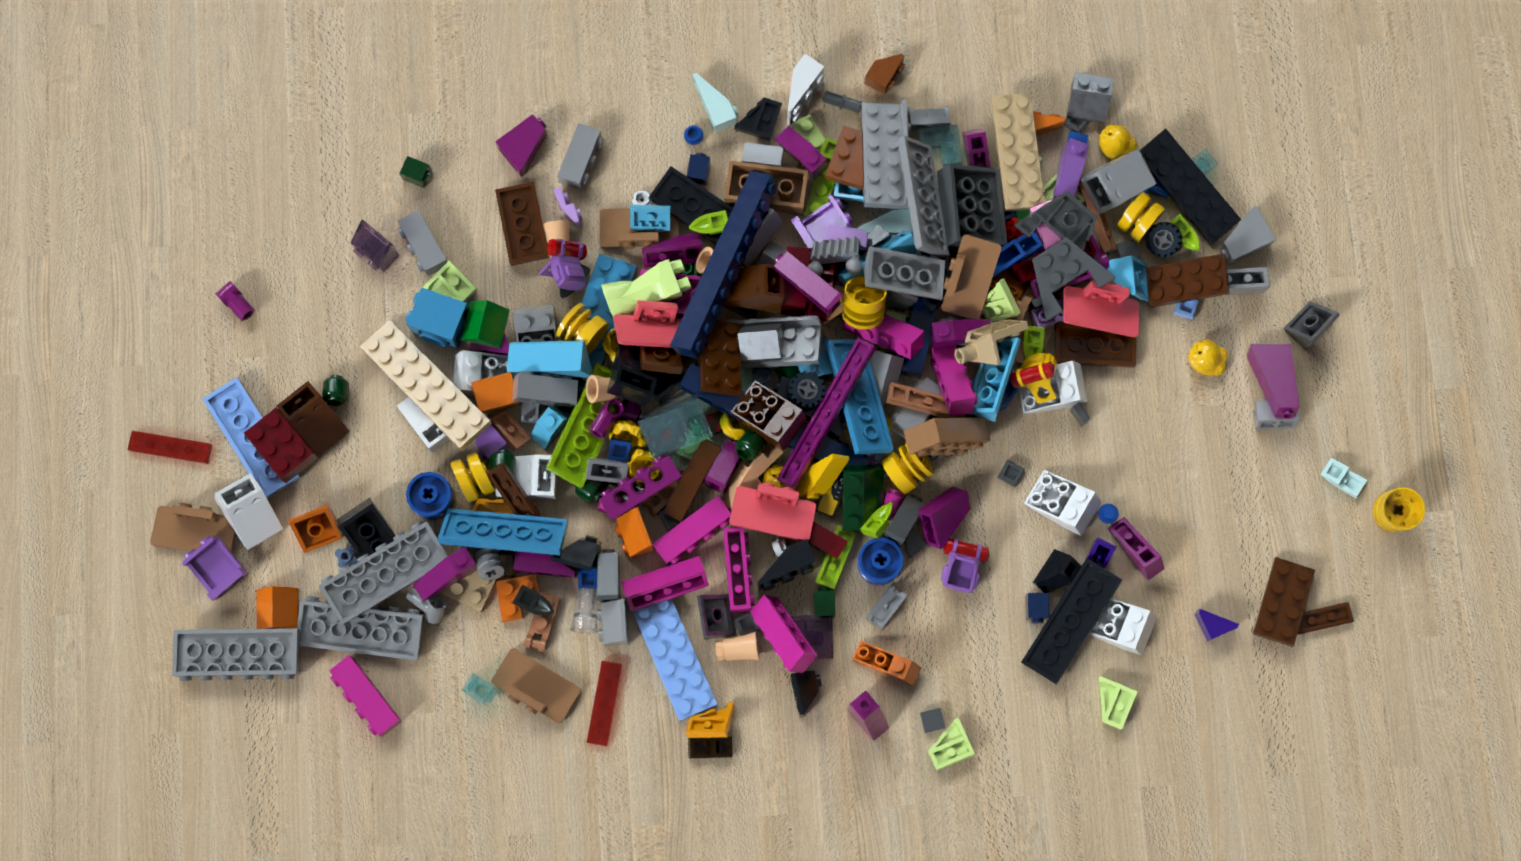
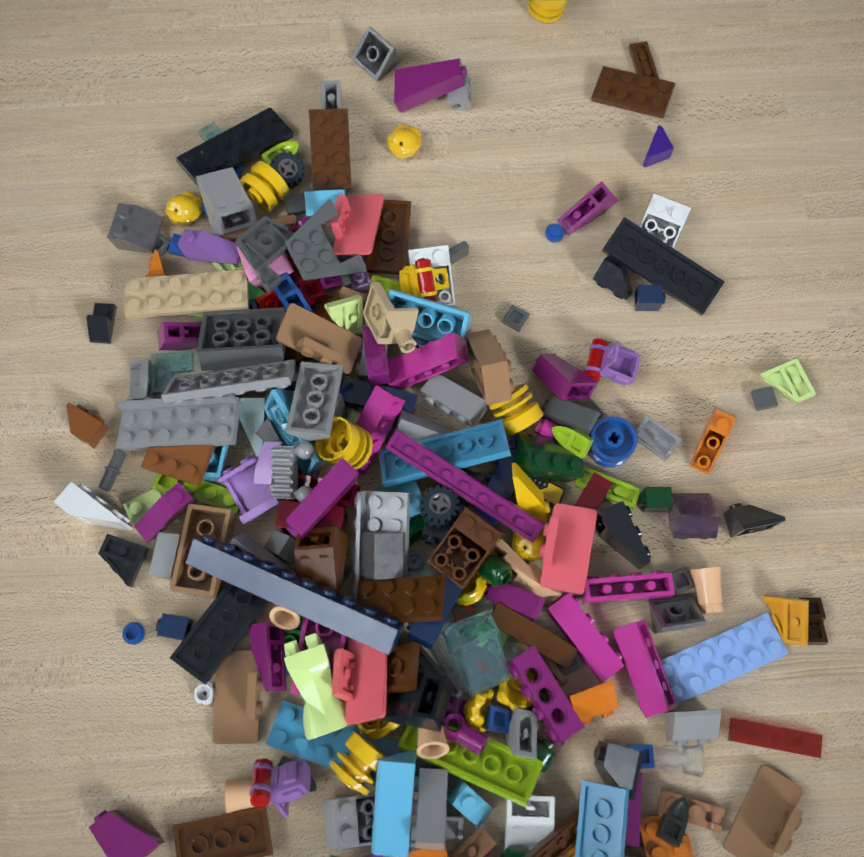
camera: 90 degrees left, 5 degrees down
(572, 214) = (217, 775): lavender slope -> none
(580, 156) = (146, 767): light grey brick -> none
(608, 576) = (642, 732): slope -> none
(650, 218) = (229, 681): medium azure bracket -> none
(710, 223) = (241, 611): lime plate -> none
(716, 105) = (102, 606): light aqua slope -> none
(779, 546) = (599, 544): white plate -> none
(783, 634) = (698, 538): dark pink brick -> none
(868, 715) = (772, 457): magenta slope -> none
(918, 400) = (447, 396): nougat plate -> none
(989, 77) = (101, 323): none -> black slope
(1063, 502) = (544, 271): white slope -> none
(1101, 552) = (595, 240): dark purple slope -> none
(1115, 702) = (735, 234): yellowish green wing -> none
(1186, 309) = (356, 158): light blue tile -> none
(1247, 238) = (287, 101): light grey slope -> none
(1343, 478) = (517, 42): light aqua slope -> none

